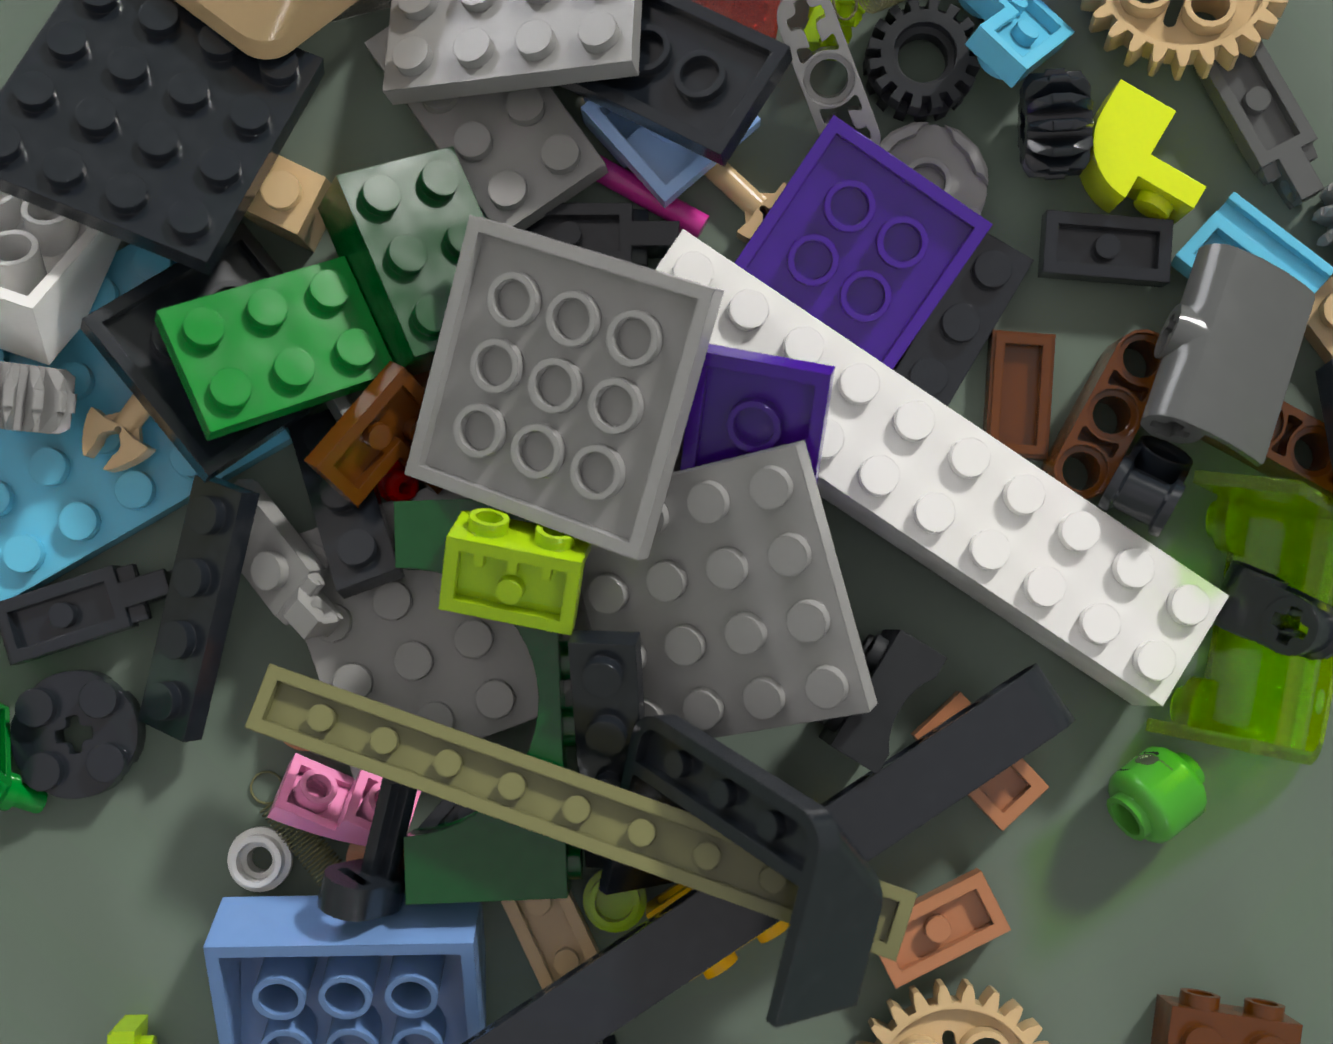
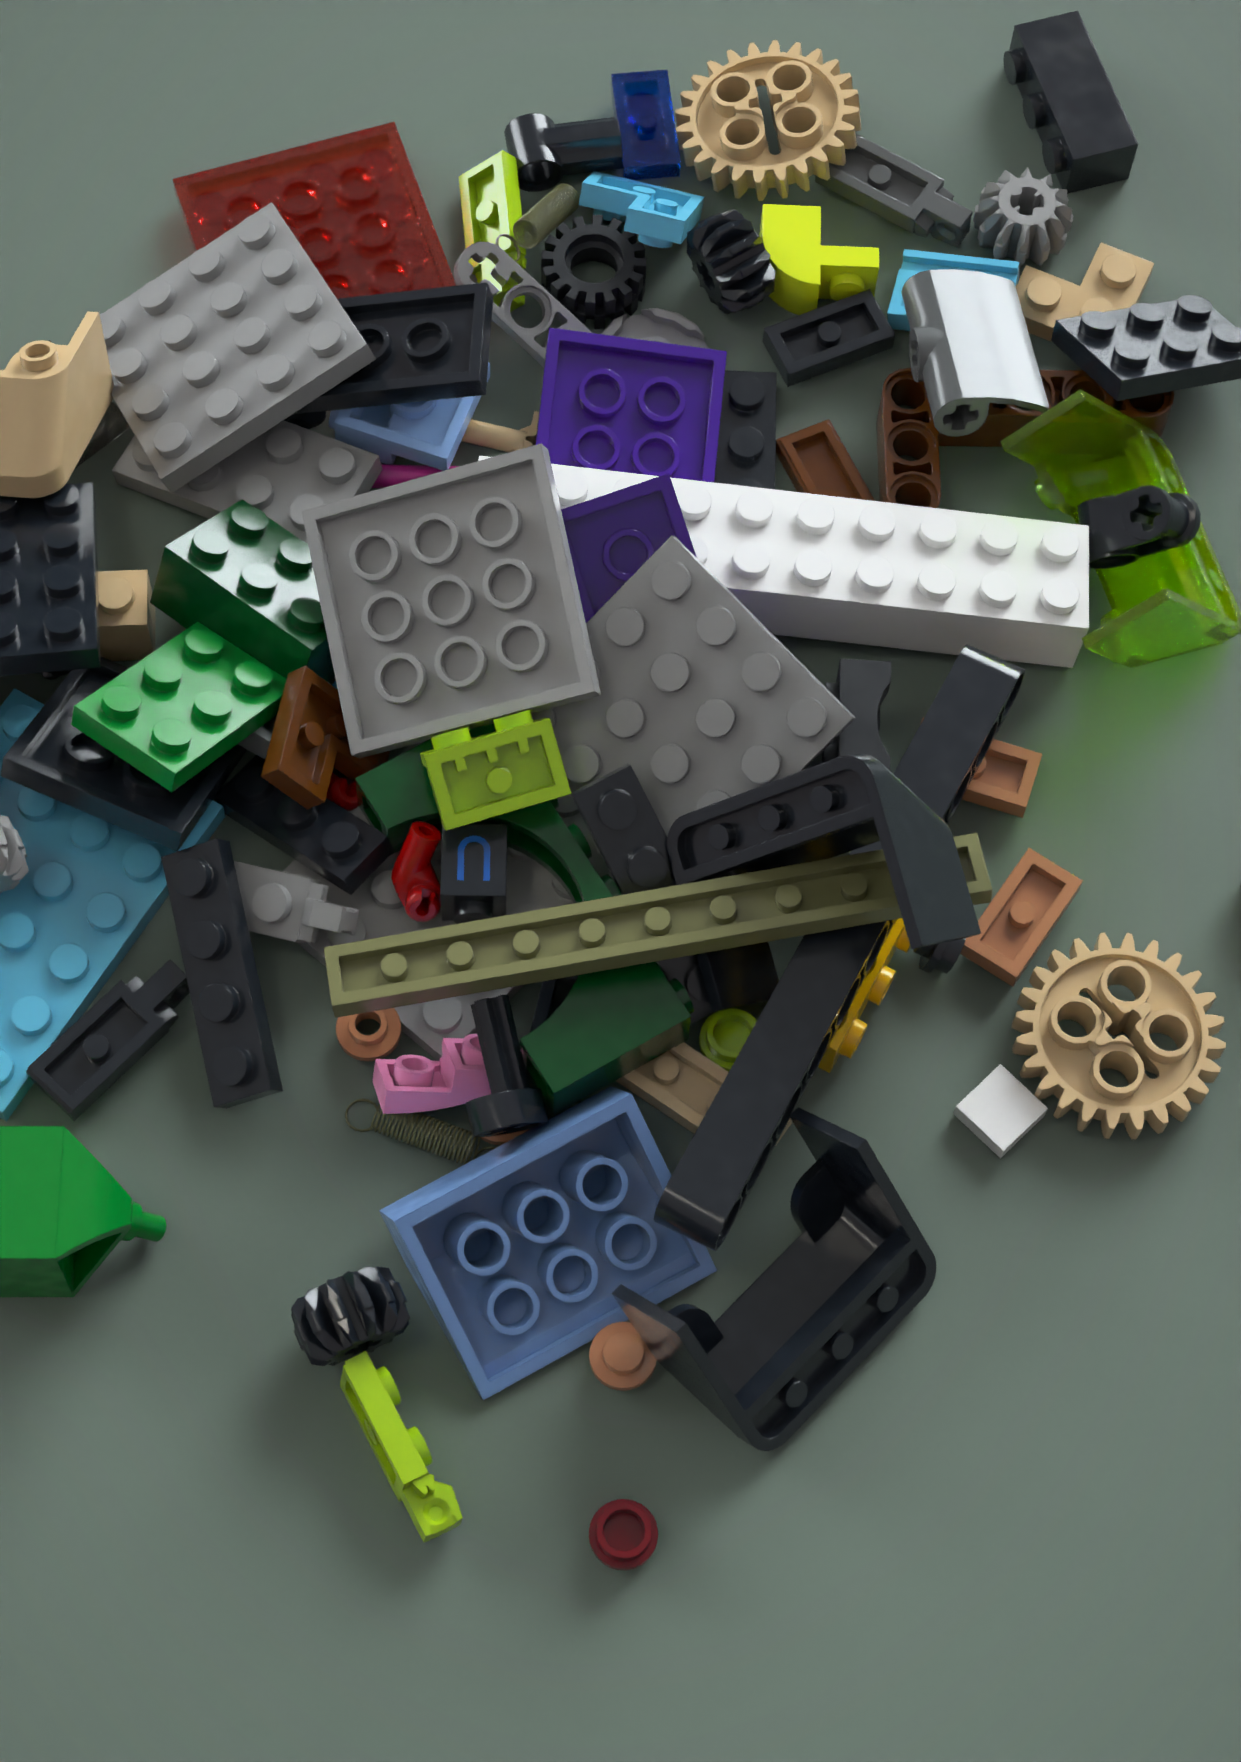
camera: 35 degrees left, 20 degrees down
(39, 739) = (166, 1114): black plate -> none
(128, 425) = (73, 851): tan bar -> none
(141, 987) = (350, 1315): none -> black gear
(246, 872) = (387, 1152): white plate -> none
(409, 616) = (414, 874): none -> red arm
(456, 650) = (474, 872): none -> black brick
(1149, 482) = (971, 480): black piece -> none
(1156, 794) = (1133, 717): bright green head -> none

